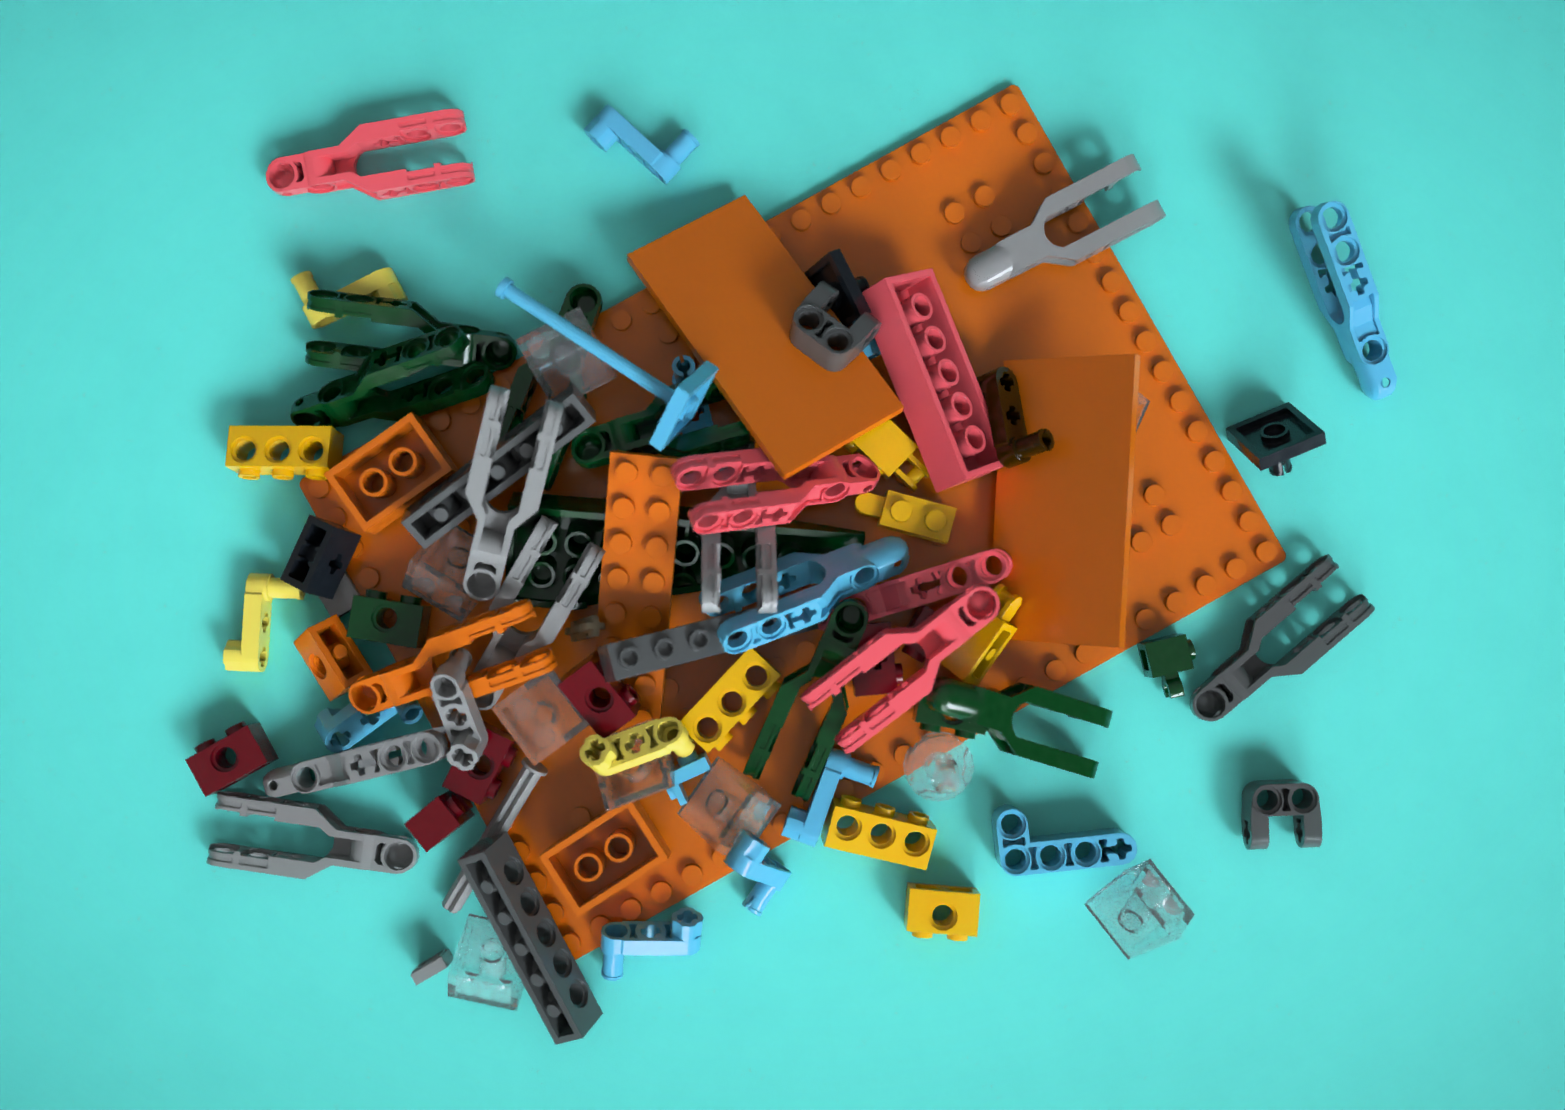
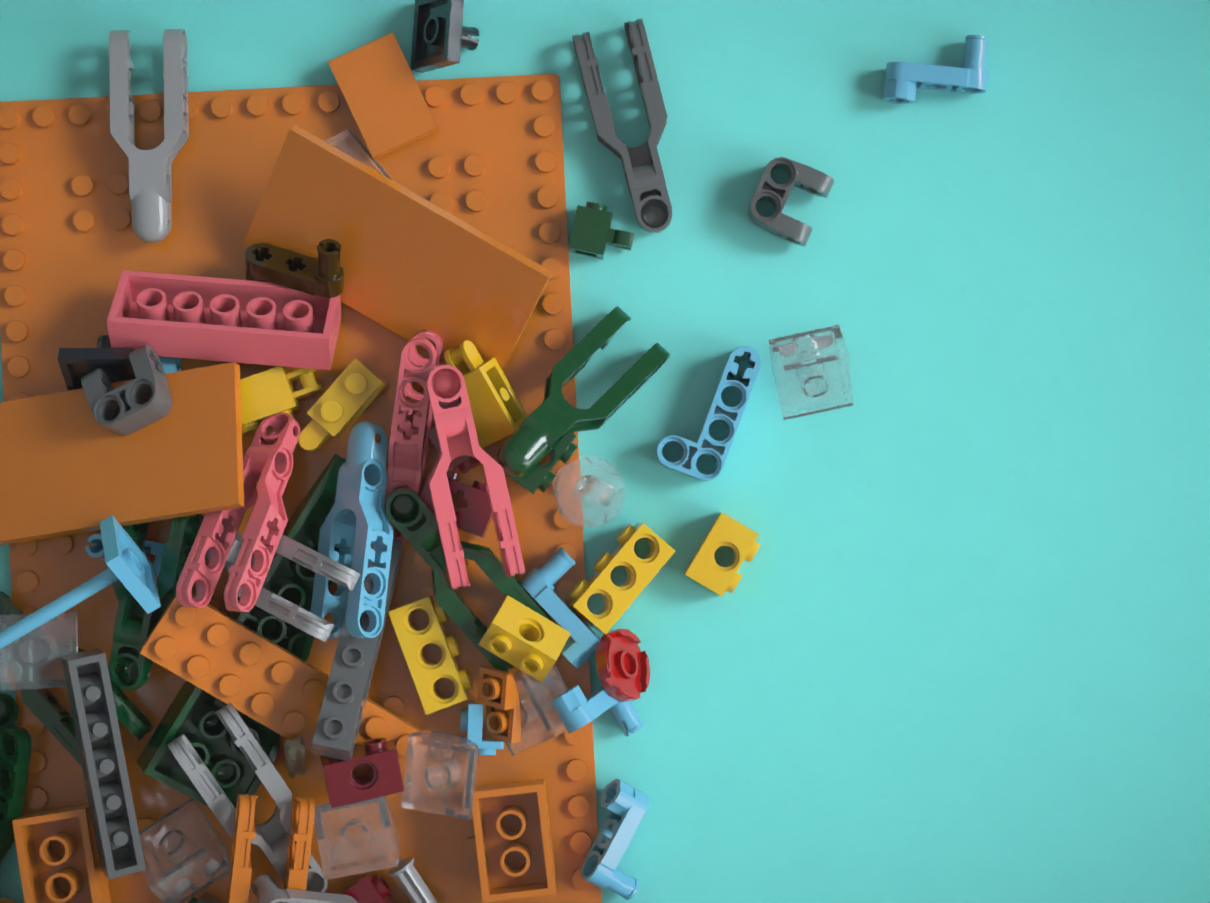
camera: 65 degrees left, 0 degrees up
(494, 526) = (156, 795): light grey piece -> none
(614, 754) = (420, 783): light yellow beam -> none
(724, 782) = (502, 702): none -> orange slope
(786, 779) = (524, 638): none -> yellow brick
(803, 872) = (622, 665): none -> red tile
(1193, 416) = (383, 96): none -> orange tile
(1440, 865) = (905, 77): none -> medium azure beam

